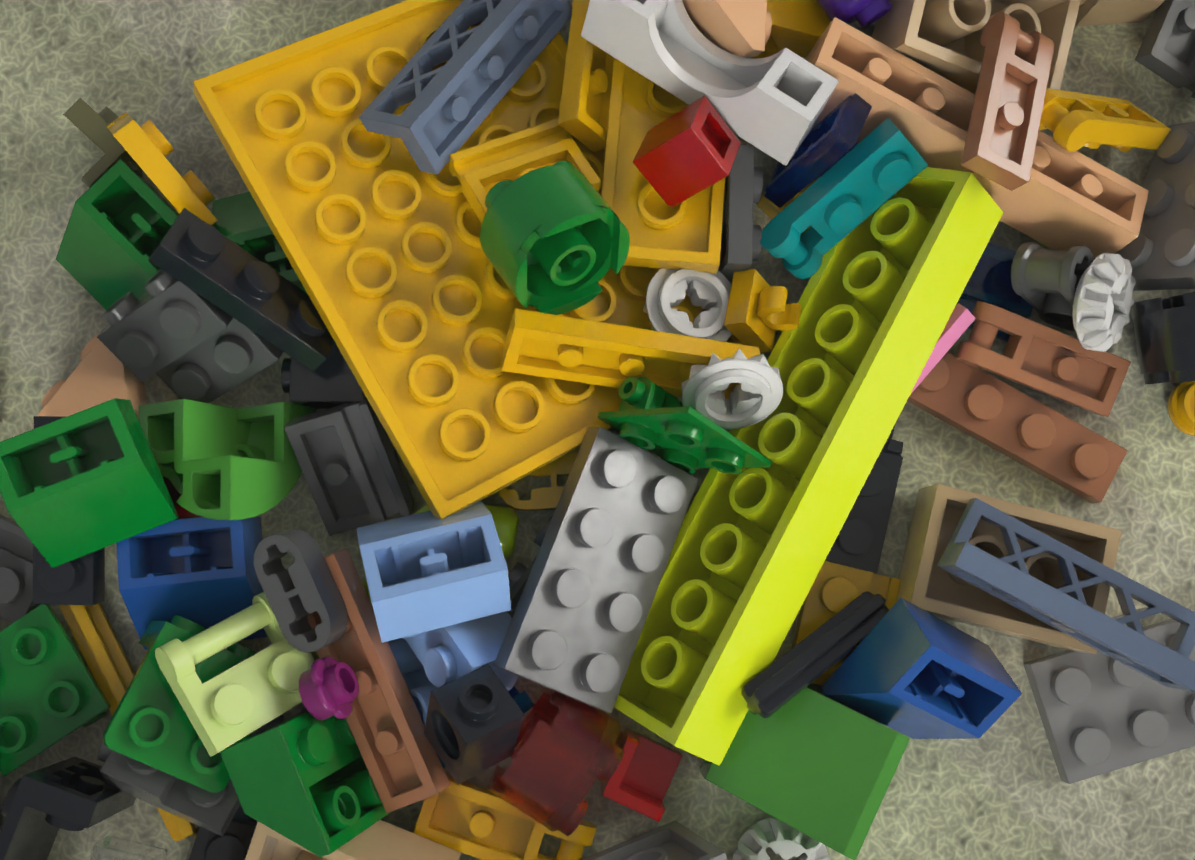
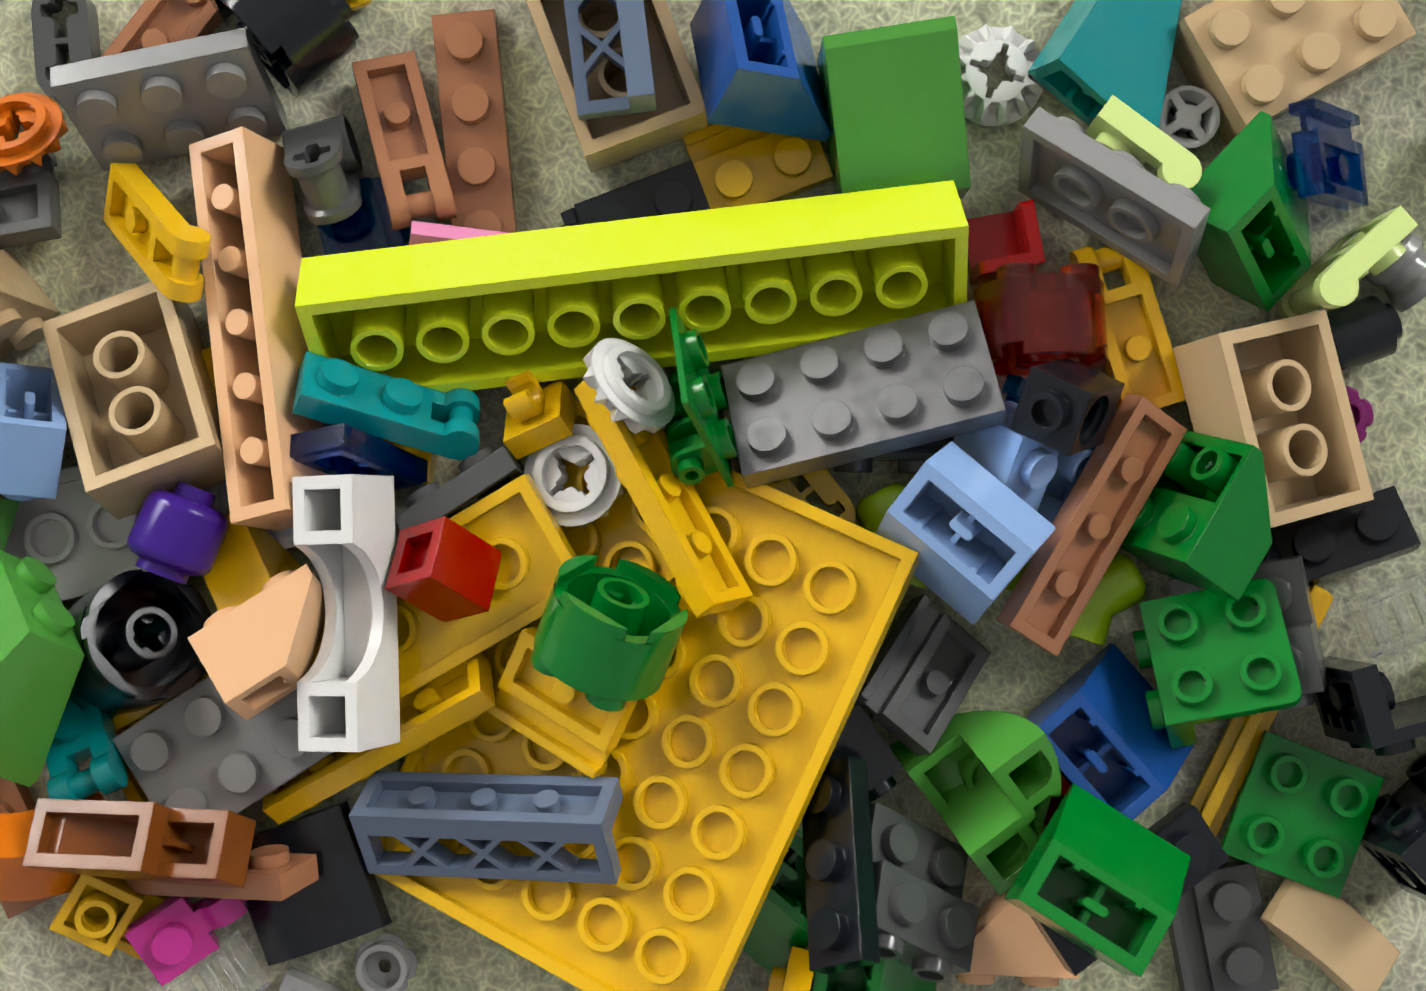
camera: 120 degrees left, 5 degrees up
(244, 694) = (1168, 611): yellowish green plate -> none
(300, 590) = (1059, 631): dark grey beam -> none
(328, 689) = (1123, 547): magenta plate -> none
(814, 655) = (803, 162): black axle -> none
(1008, 102) = (204, 317): nougat plate -> none
(1103, 302) = (321, 119): white gear -> none

